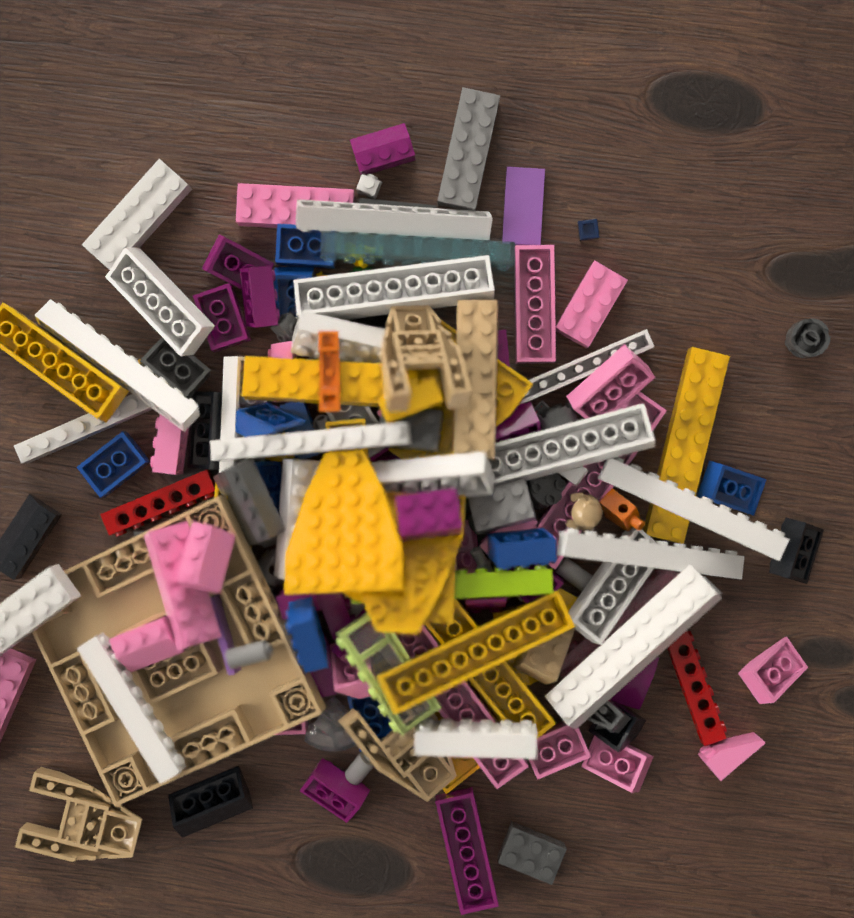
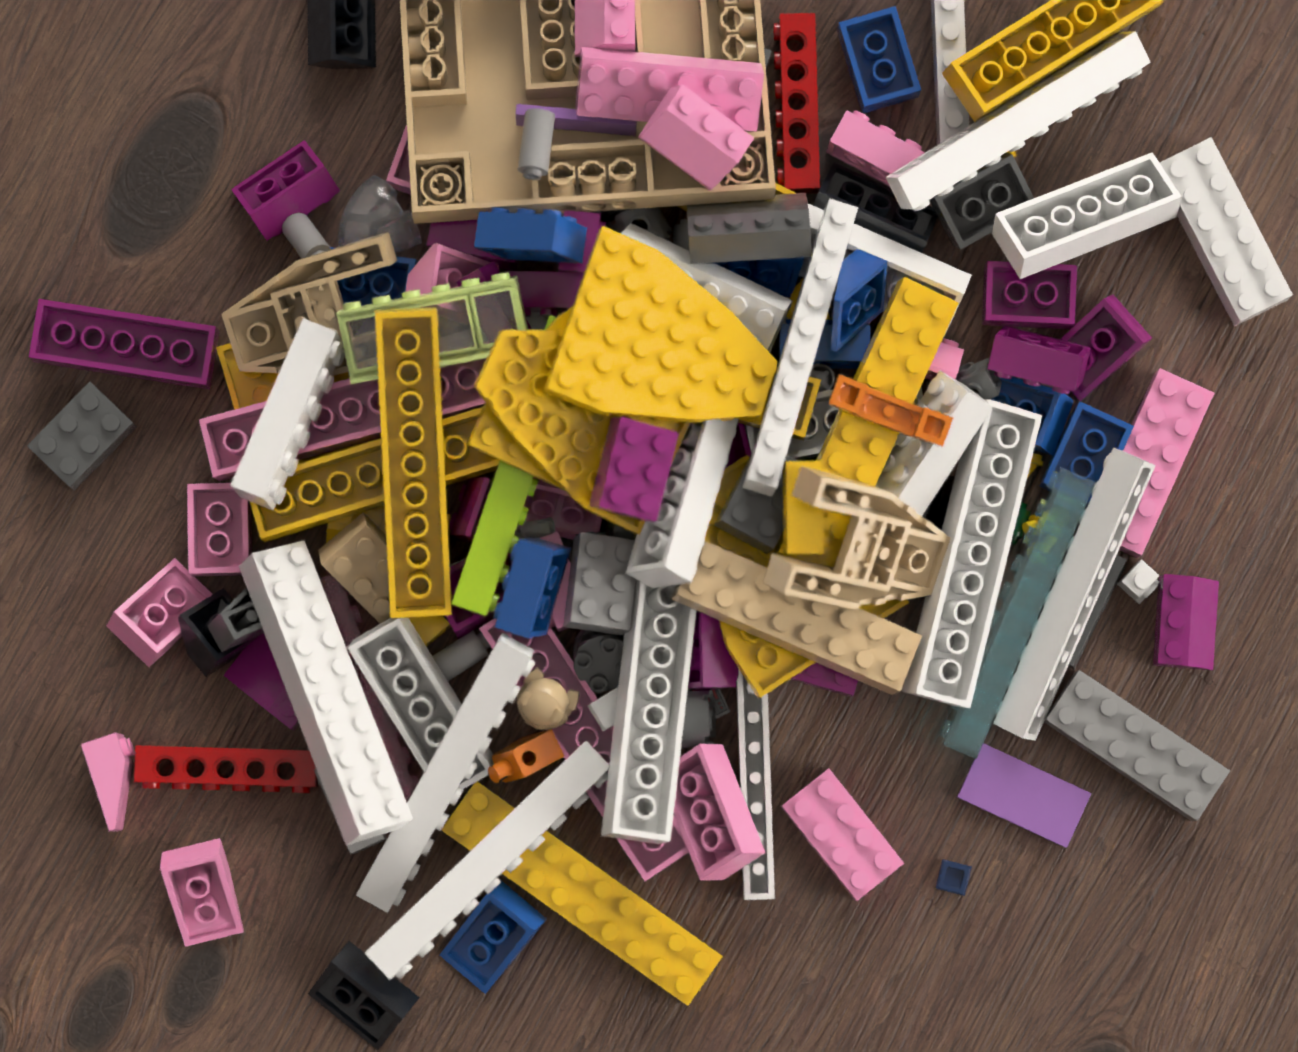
camera: 110 degrees right, 5 degrees down
(534, 304) = (874, 752): bright pink brick -> none

